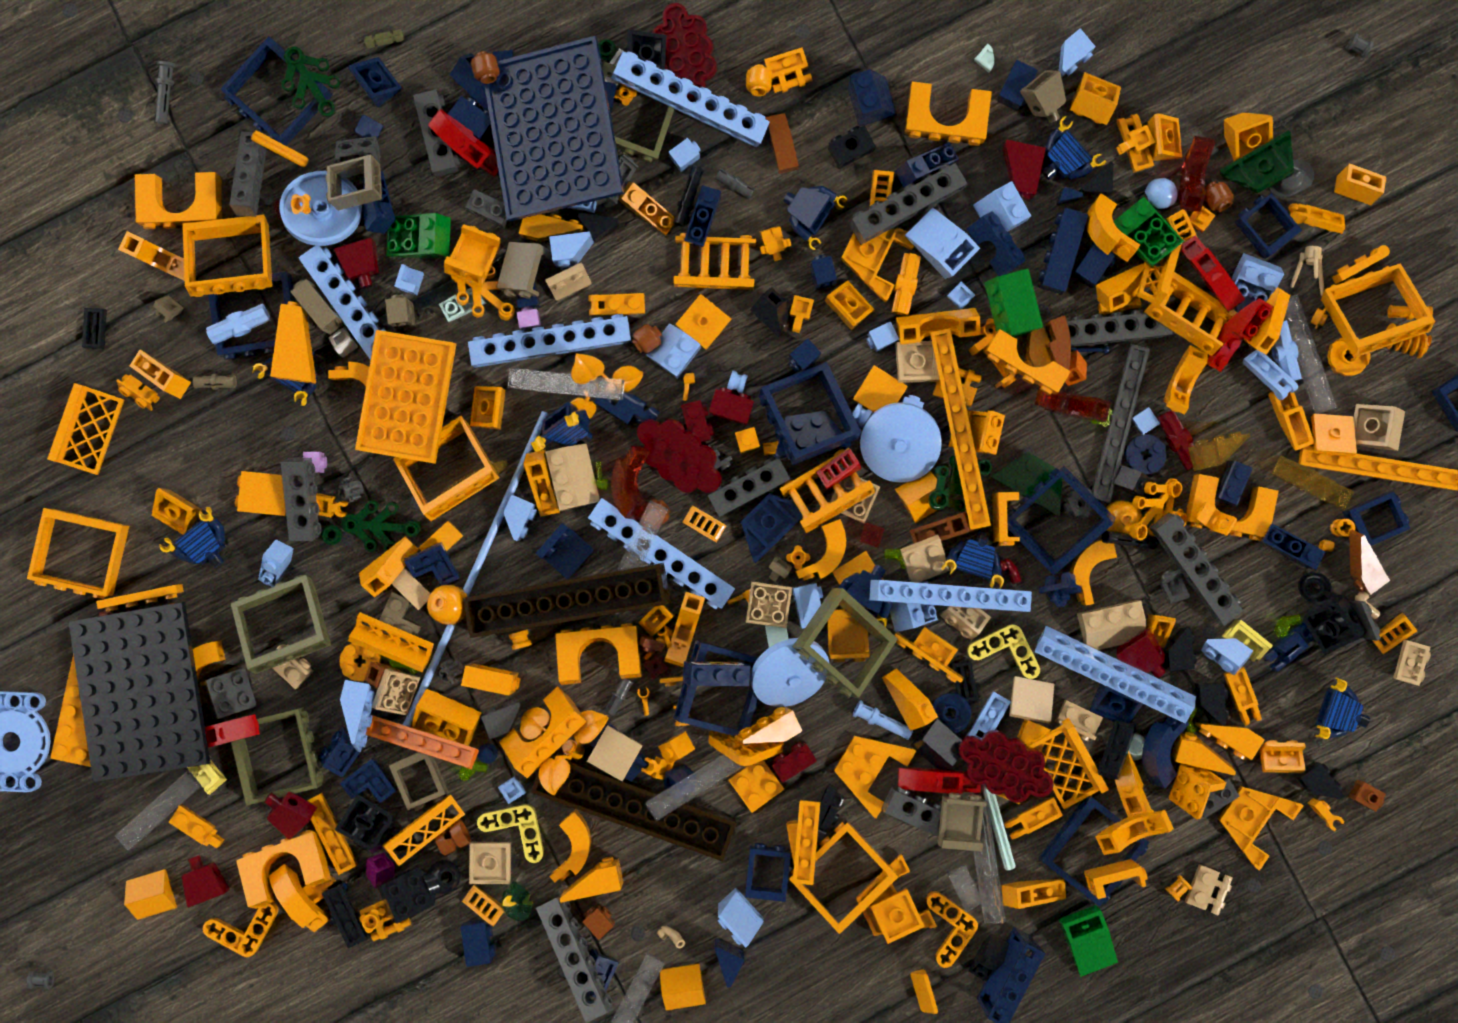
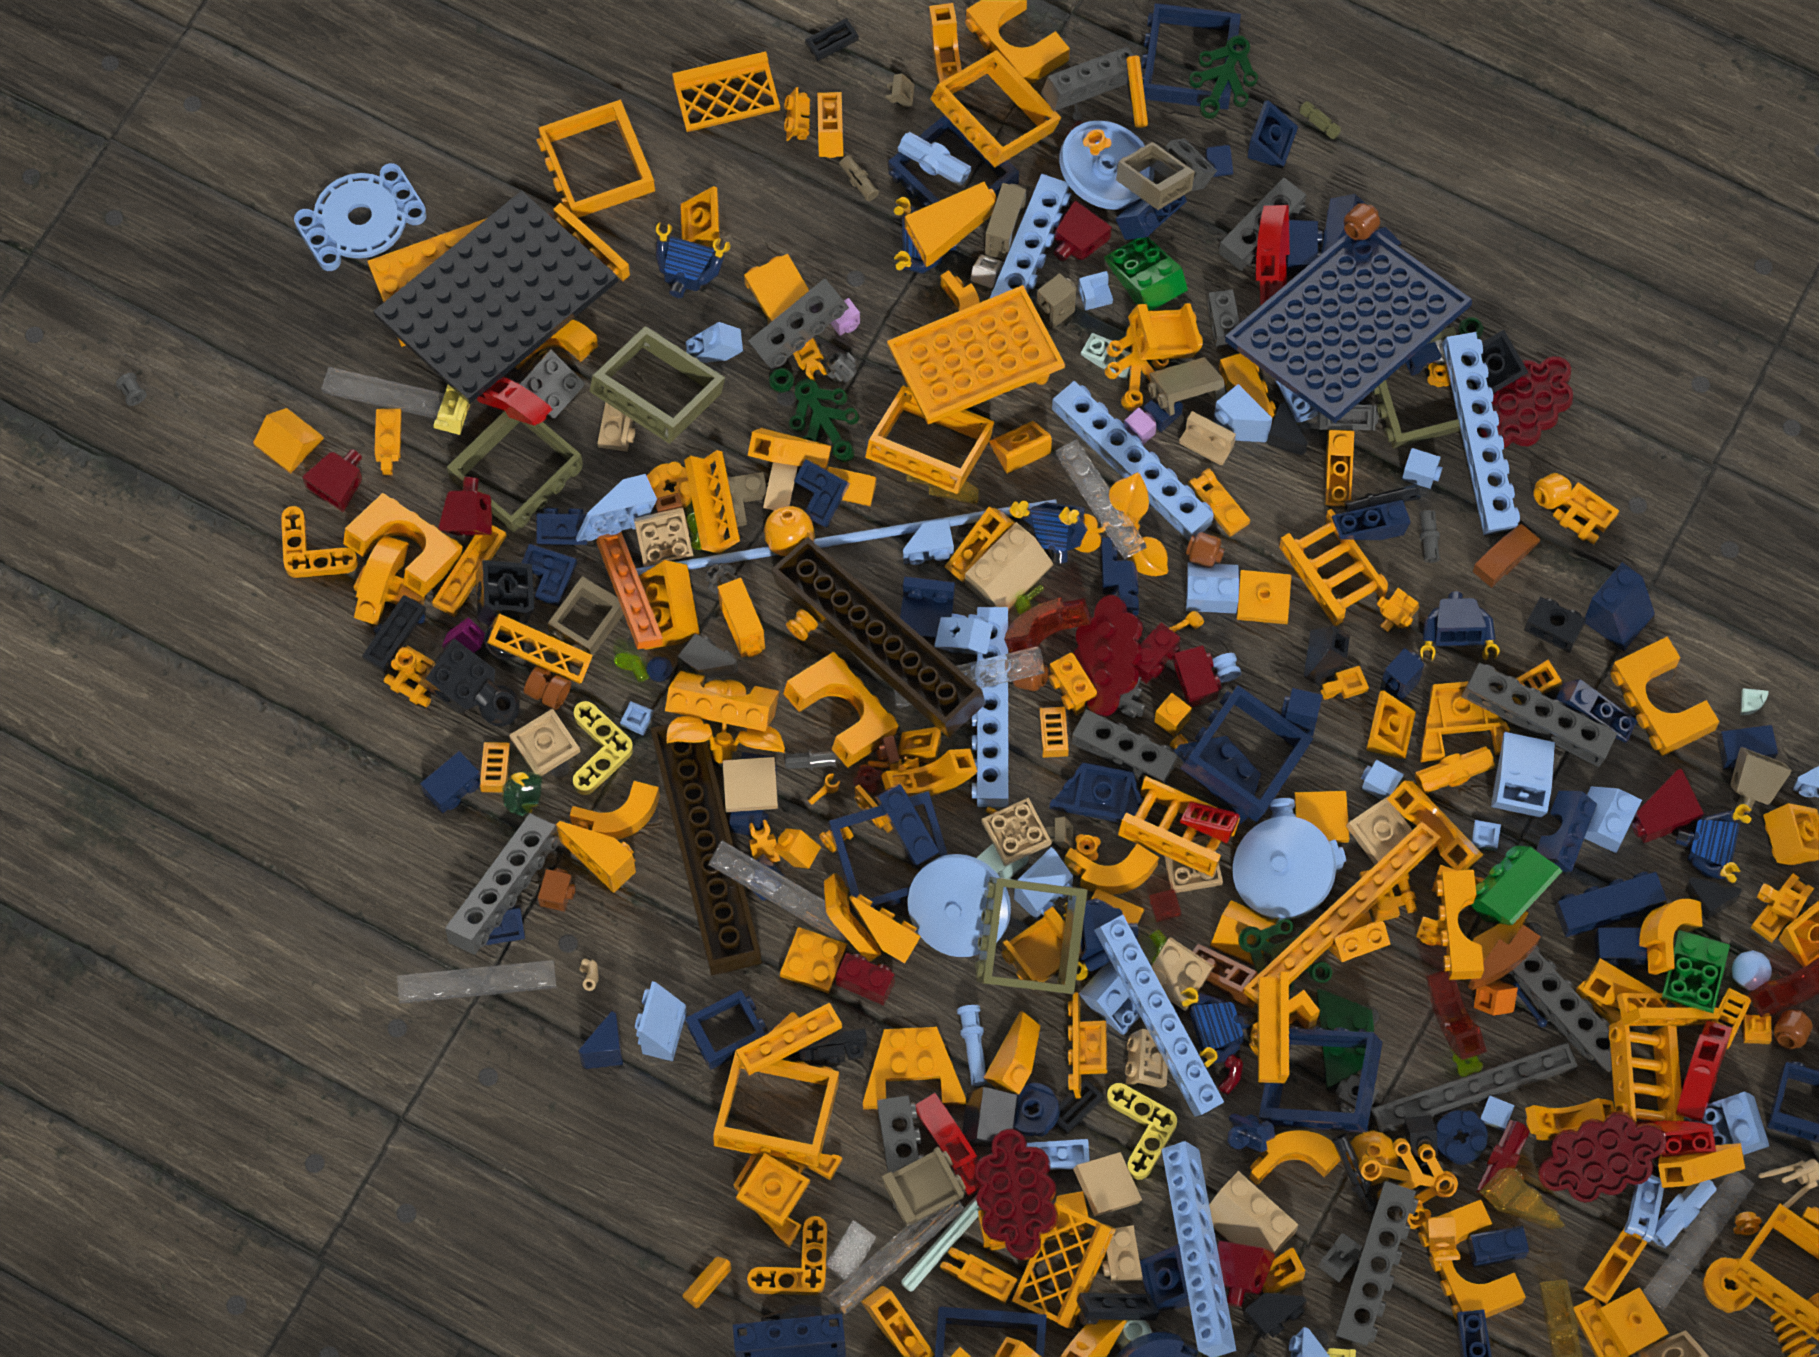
camera: 55 degrees right, 20 degrees down
(602, 541) = (963, 634): none -> light blue brick
(681, 490) = (1072, 682): none -> light orange bracket
(682, 986) = (539, 1023): light orange slope -> none
(1014, 531) = (1273, 1028): none -> light orange fence
(1068, 195) = (1672, 873): dark blue slope -> none
(1225, 378) = (1602, 1156): none -> dark red plate

